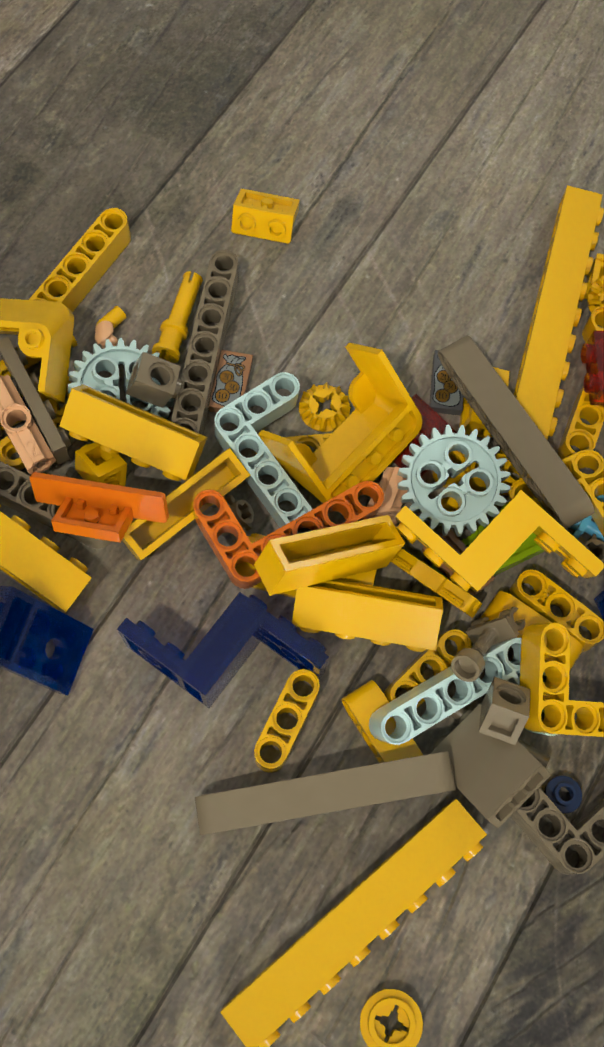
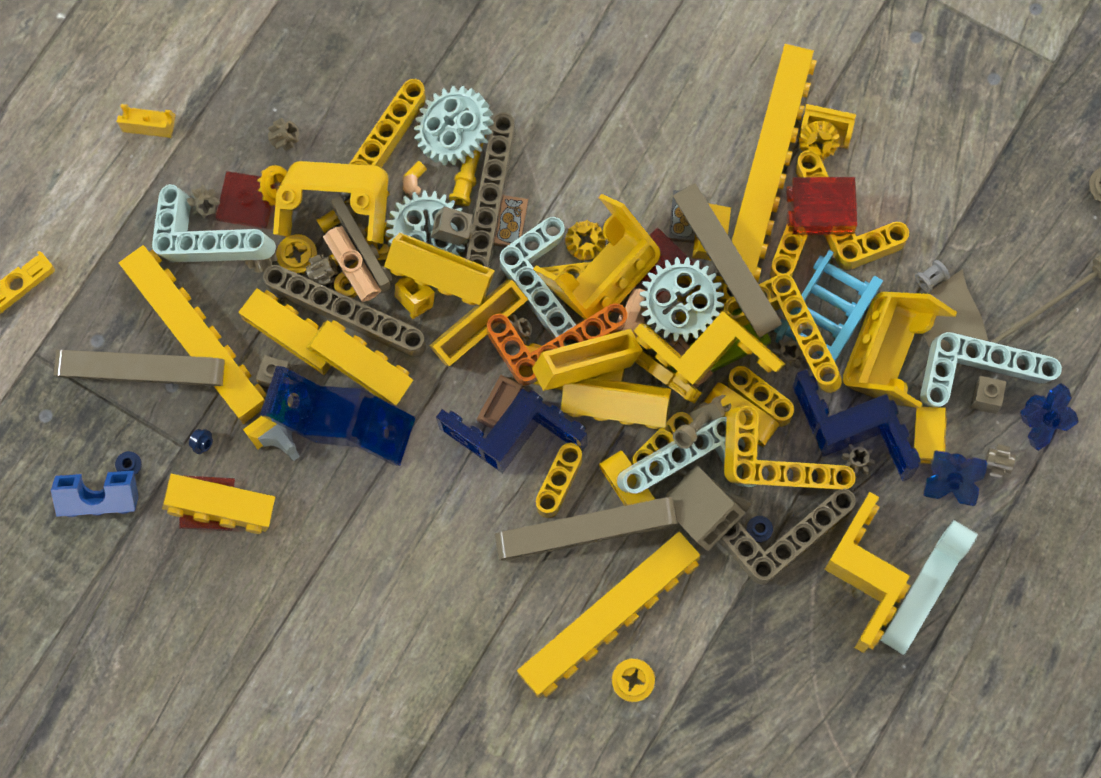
camera: 10 degrees right, 5 degrees up
(97, 507) = (415, 329): orange bracket -> none
(162, 264) = (453, 125): none -> light aqua gear
(207, 609) = (498, 401): none -> medium nougat tile
(264, 215) = (535, 76): yellow bracket -> none
(504, 710) = (711, 468): dark tan brick -> none

